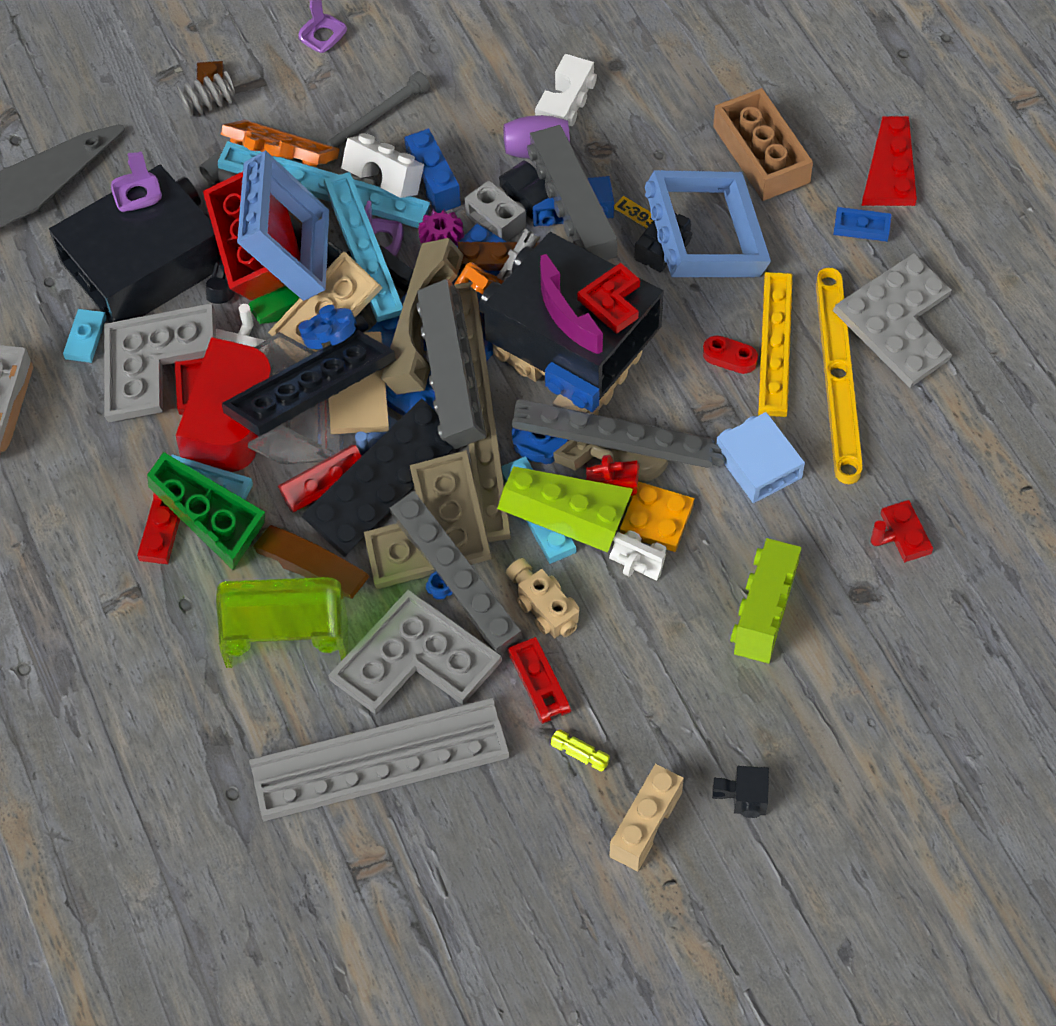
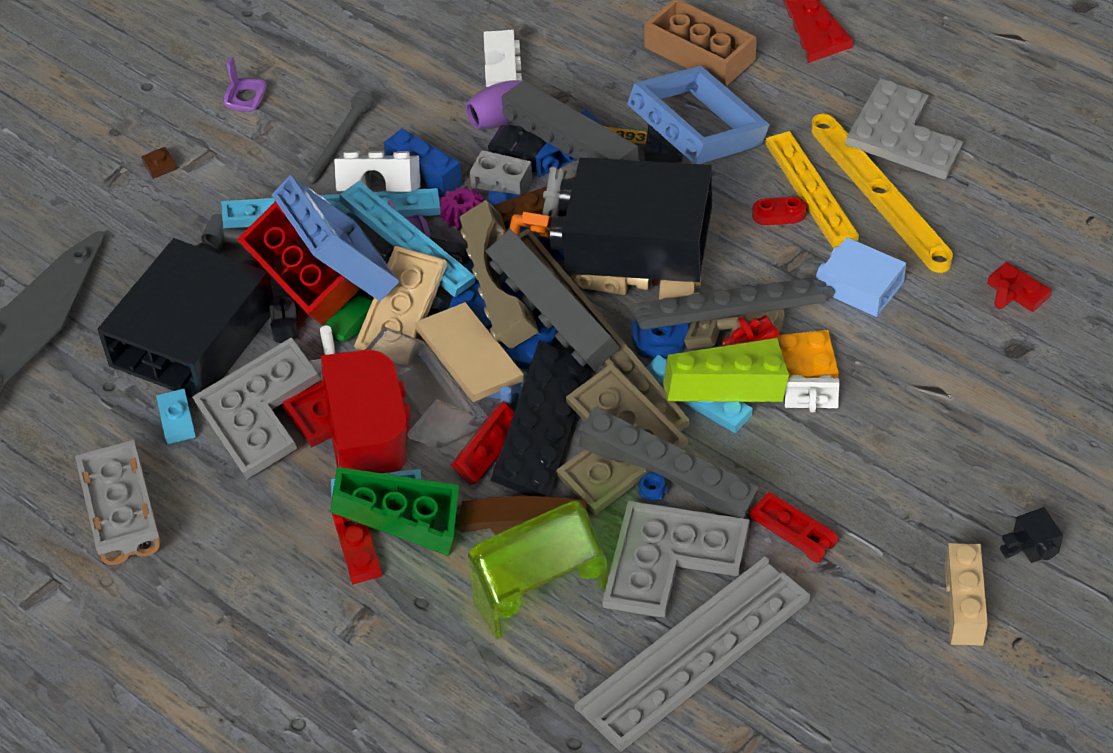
camera: 25 degrees left, 10 degrees down
(138, 177) = (165, 253): medium lavender piece -> none
(206, 93) = (169, 175): light grey piece -> none
(279, 143) = (257, 190): orange plate -> none
(308, 383) = (436, 359): black plate -> none
(329, 325) = (420, 310): blue plate -> none
(543, 601) = (754, 460): tan brick -> none
(572, 387) = (671, 277): blue plate -> none
(580, 329) = (669, 216): magenta slope -> none
(580, 750) = (867, 568): neon yellow axle -> none
(606, 297) = (671, 185): red plate -> none
(766, 600) = (947, 383): lime wedge -> none
(862, 224) = (821, 73): blue plate -> none

